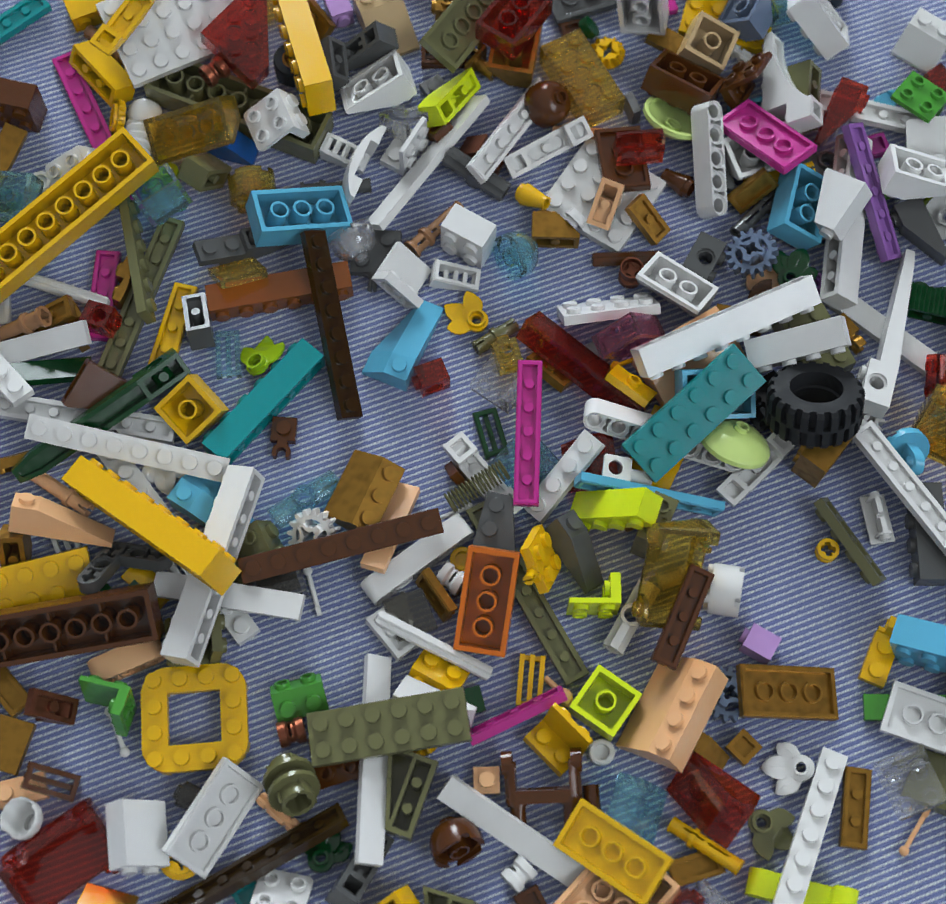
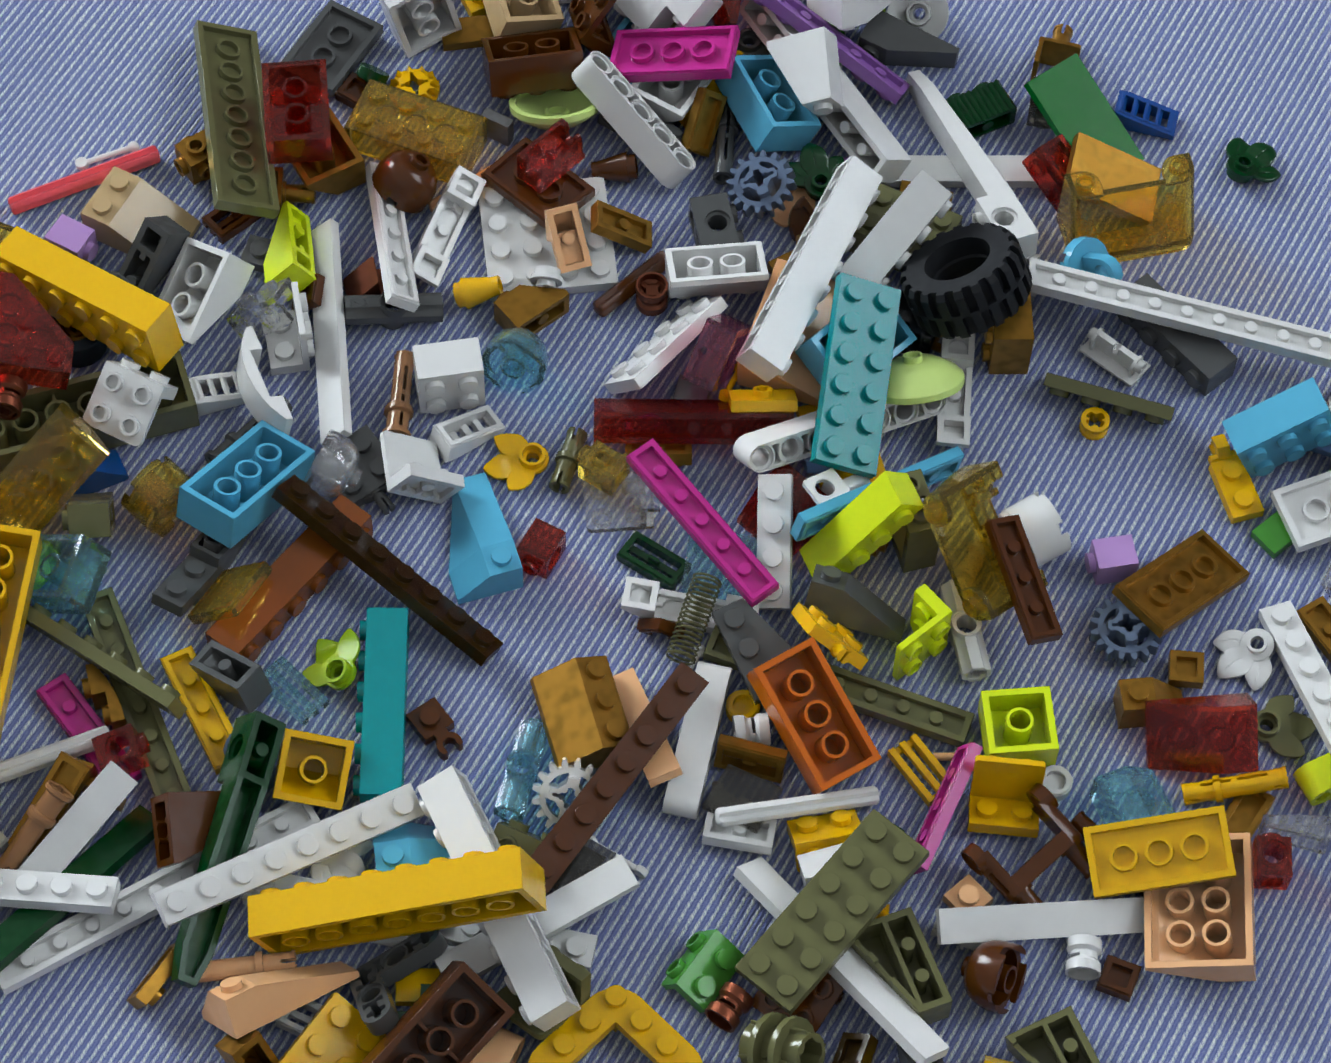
camera: 40 degrees left, 10 degrees down
(673, 712) = (1092, 681): light nougat slope -> none

